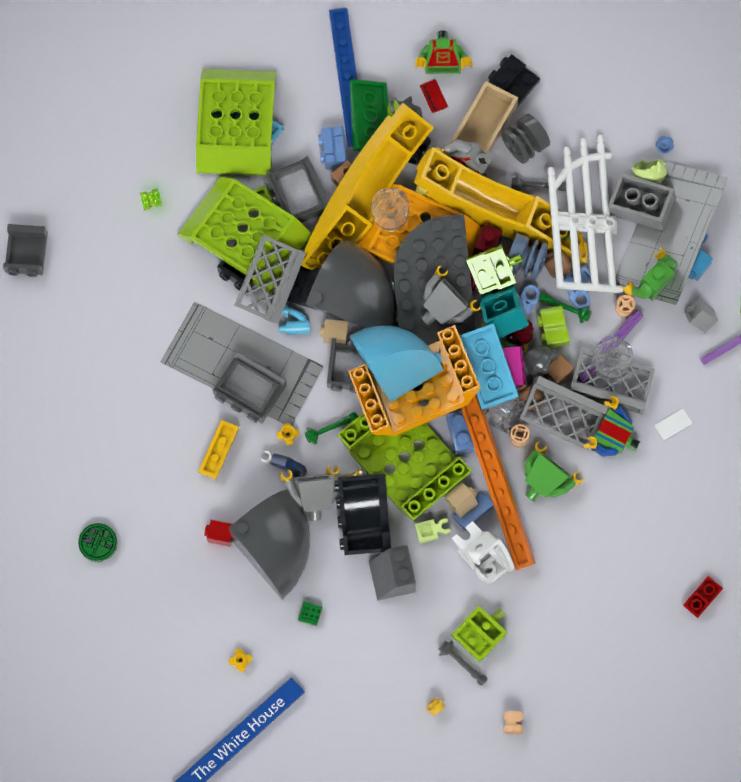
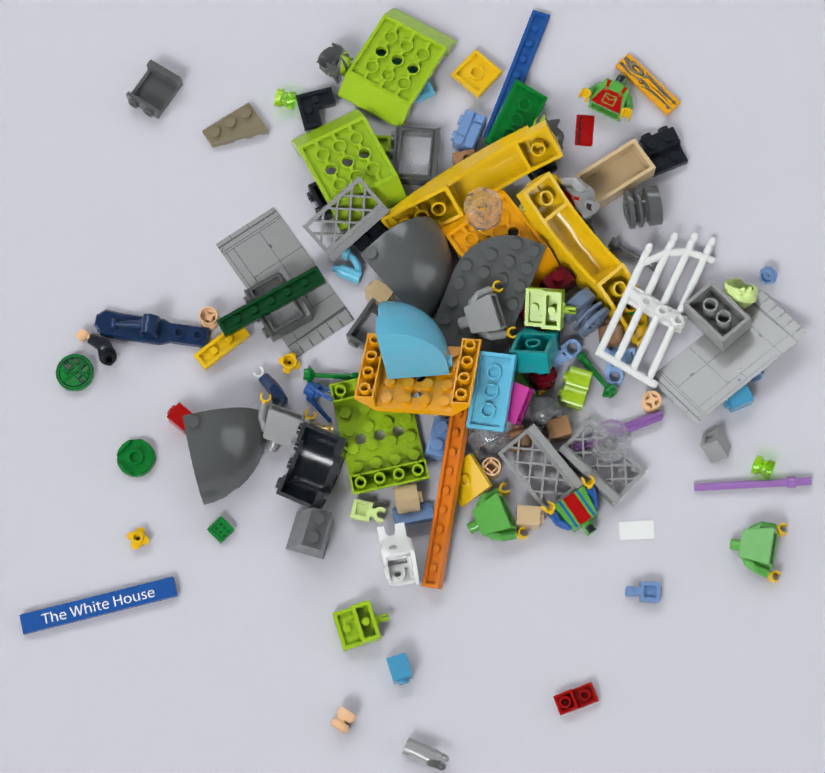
camera: 30 degrees right, 0 degrees up
(110, 504) = (106, 352): none -> black arm
(118, 247) = (235, 126): none -> dark tan wing
(144, 469) = (149, 329): none -> dark blue piece
(176, 193) = (311, 103): none -> black plate
(179, 143) = (334, 61): none -> dark grey hair
(193, 427) = (207, 314): none -> light nougat wheel
(197, 590) = (136, 458): none -> green tile
(244, 387) = (271, 301): none -> dark green tile
(311, 92) = (476, 74): none -> yellow plate
(326, 446) = (315, 391): none -> blue plant
(435, 706) = (283, 668): yellow plate -> none
(446, 649) = (321, 623): dark grey piece -> none
(467, 28) = (647, 84): none -> light orange tile
(511, 454) = (472, 481): none -> yellow plate
(537, 652) = (399, 669): none -> dark azure brick
(576, 460) = (529, 517): none -> tan brick
(600, 714) = (425, 754): none -> light grey piece
(656, 279) = (689, 390): bright green torso -> none
(712, 472) = (647, 591): none -> medium blue plate

